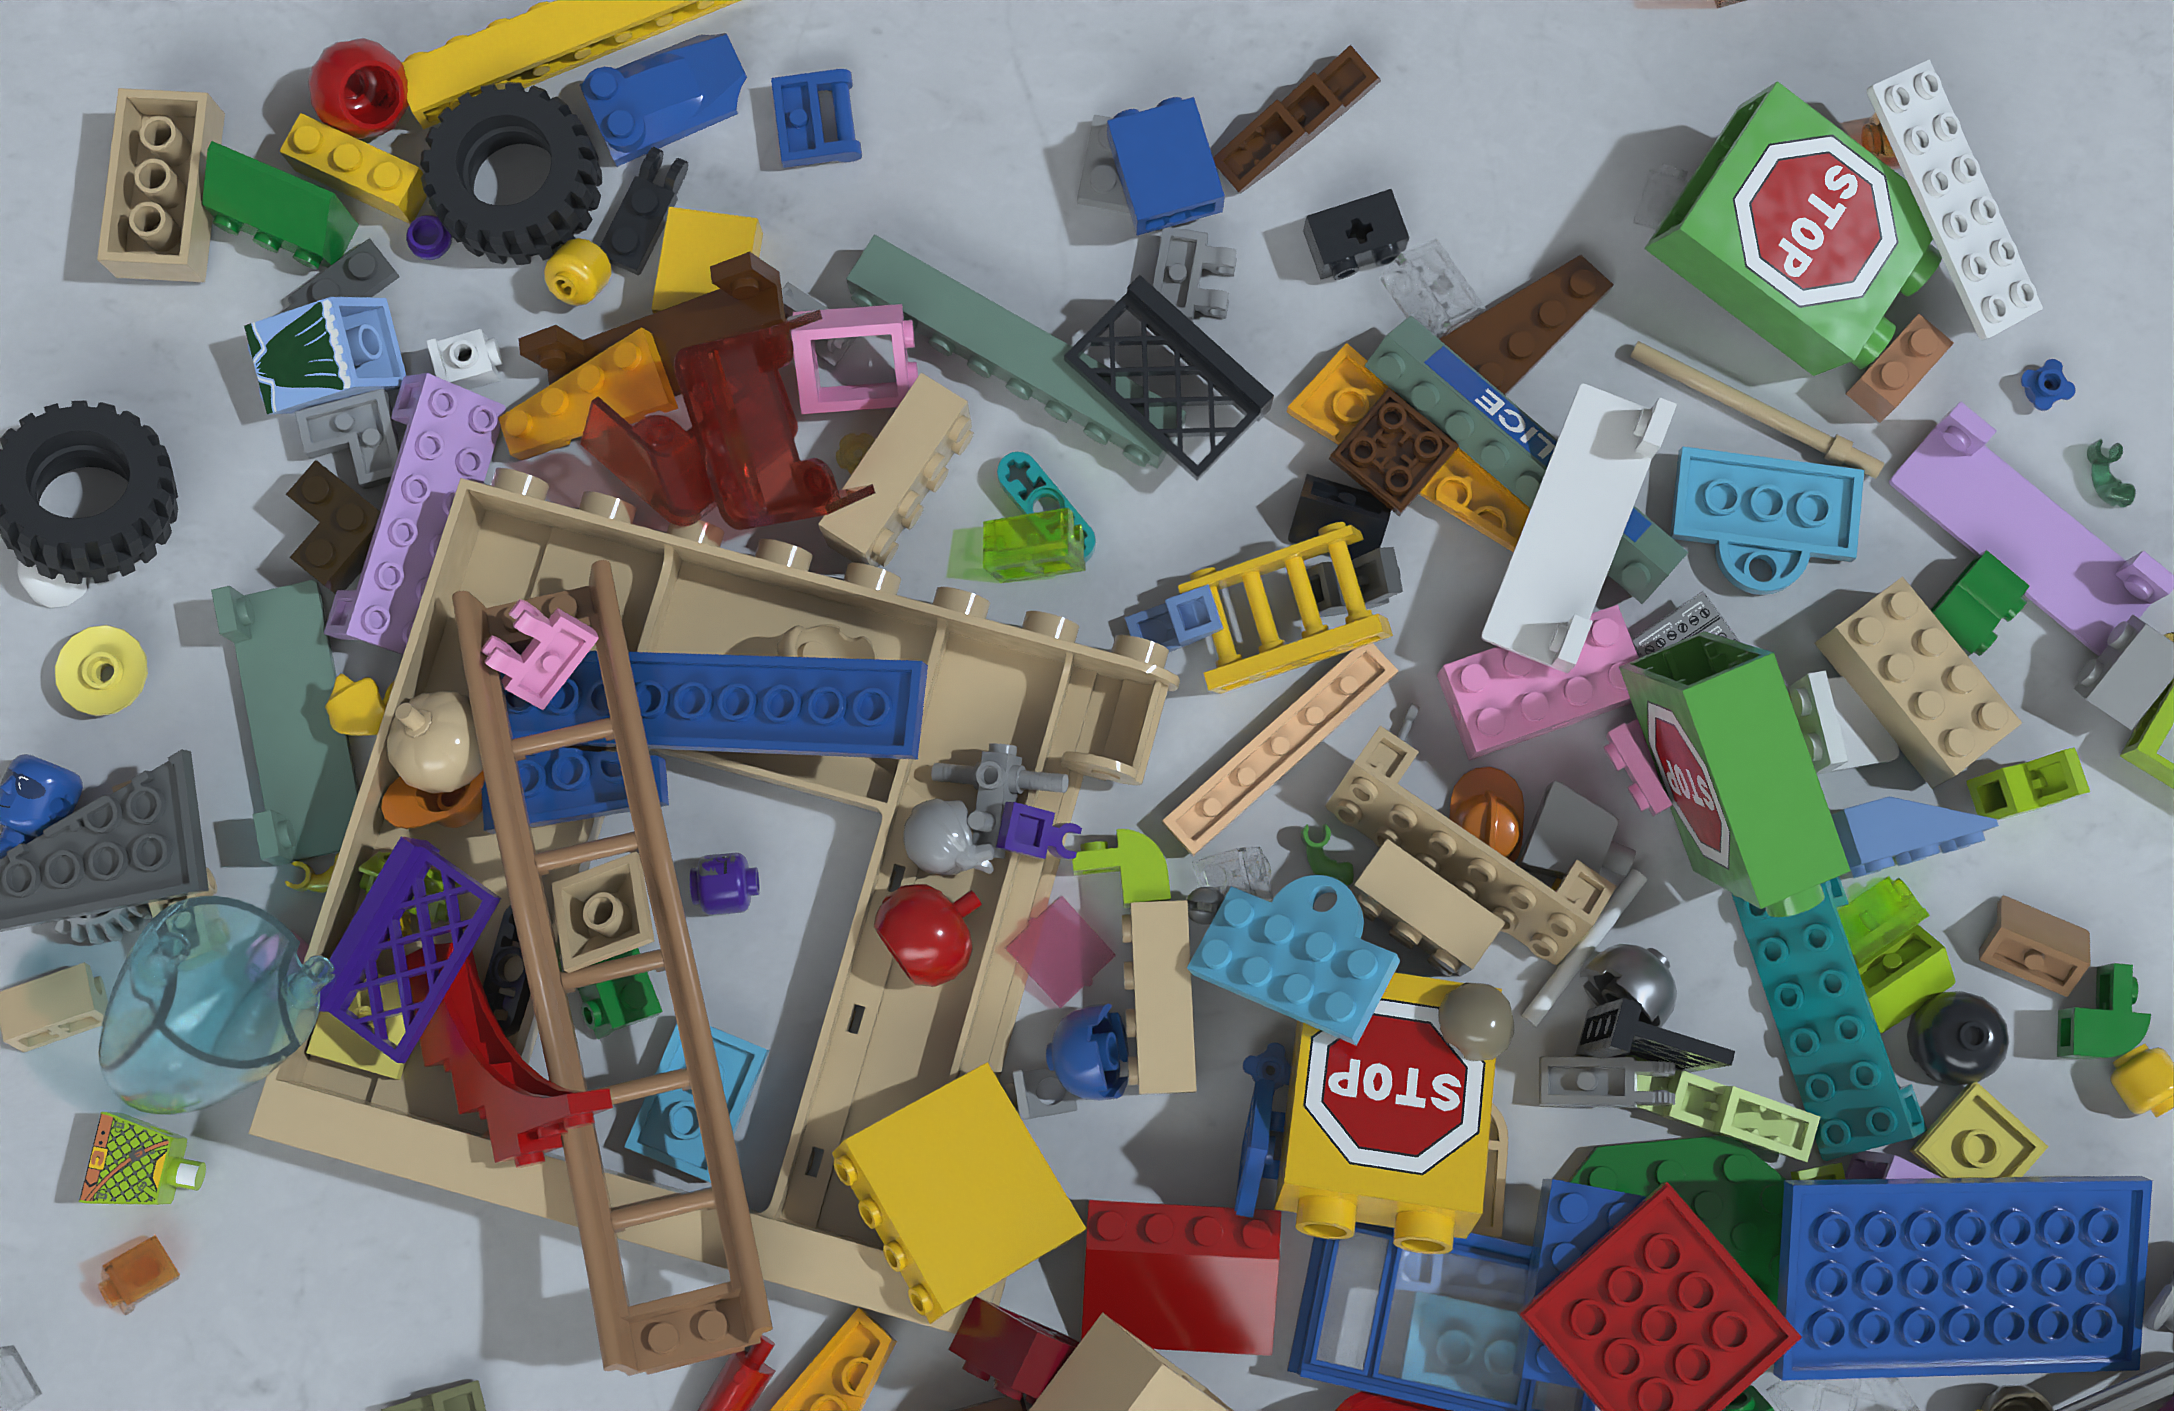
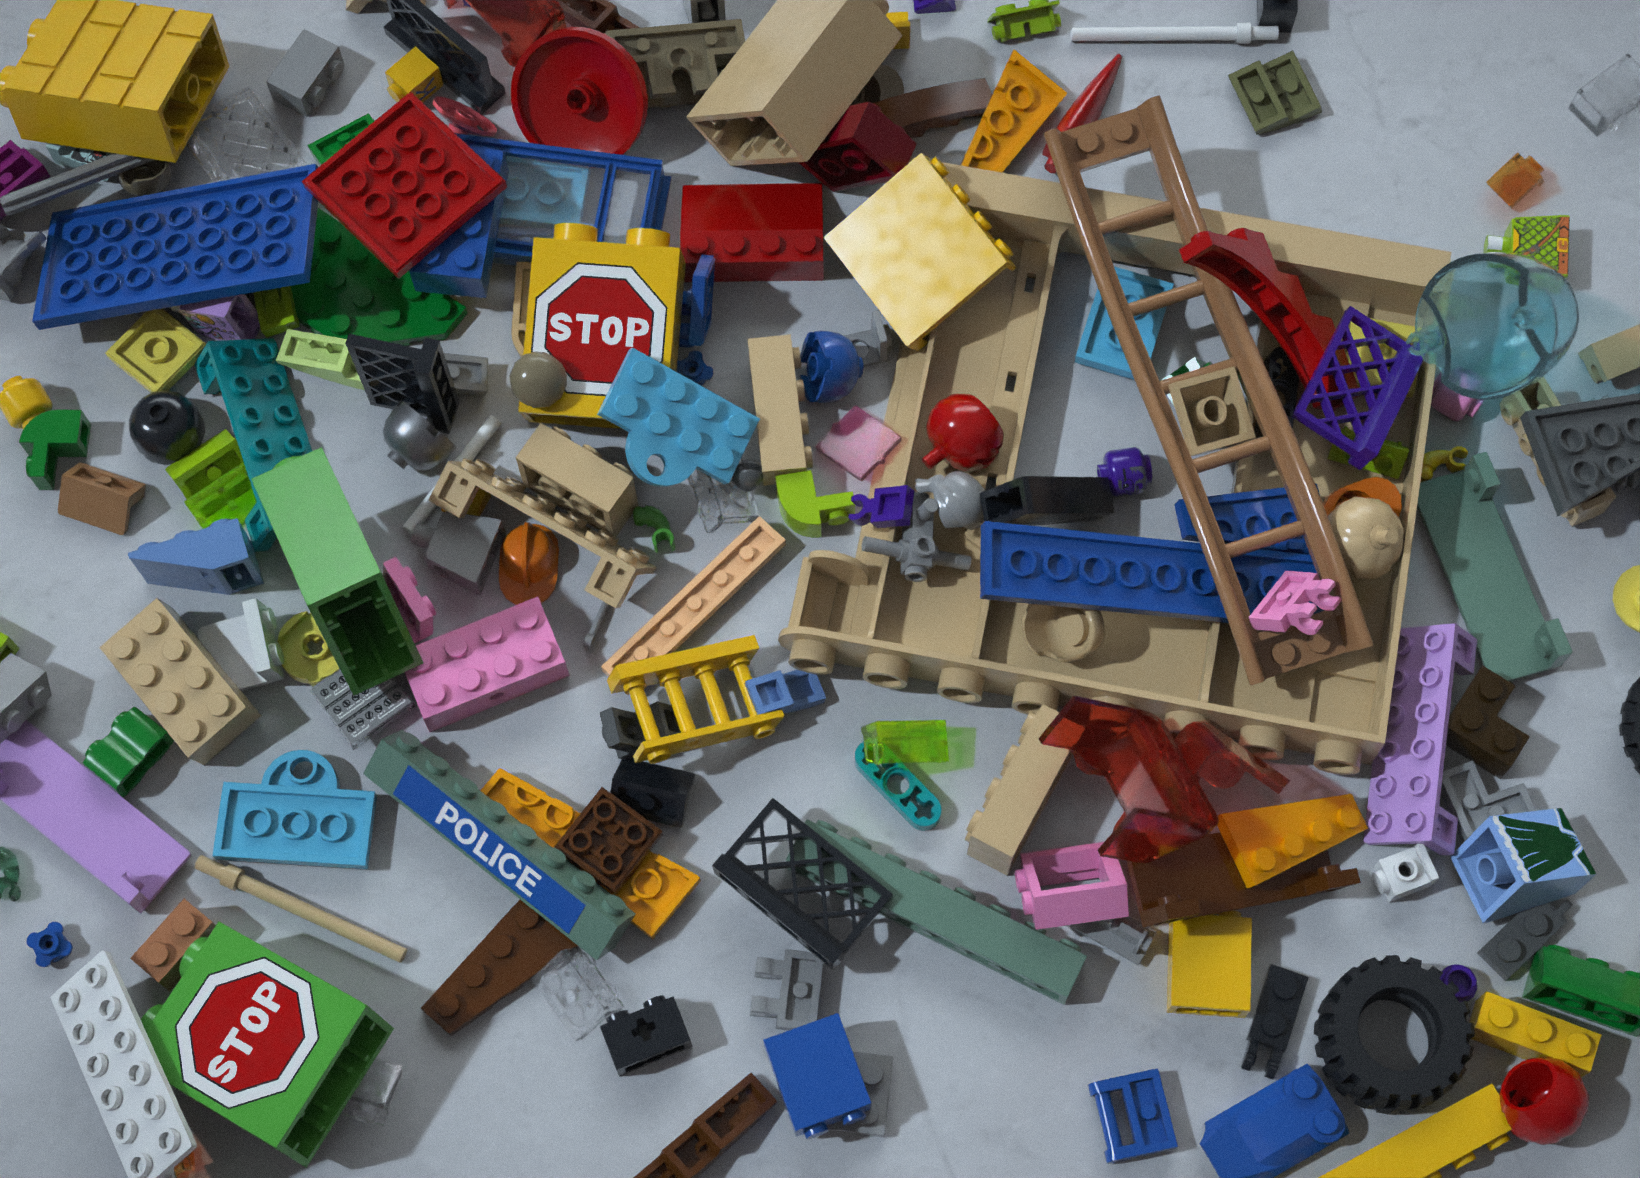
camera: 175 degrees right, 10 degrees down
(356, 706) = (1436, 572): yellow piece -> none
(577, 272) = (1320, 952): yellow head -> none
(828, 821) = (1048, 500): none -> black slope
(848, 445) = (1057, 828): clear yellow plate -> none
(1575, 527) = (456, 768): white bracket -> none
(2028, 785) = (100, 609): lime brick -> none

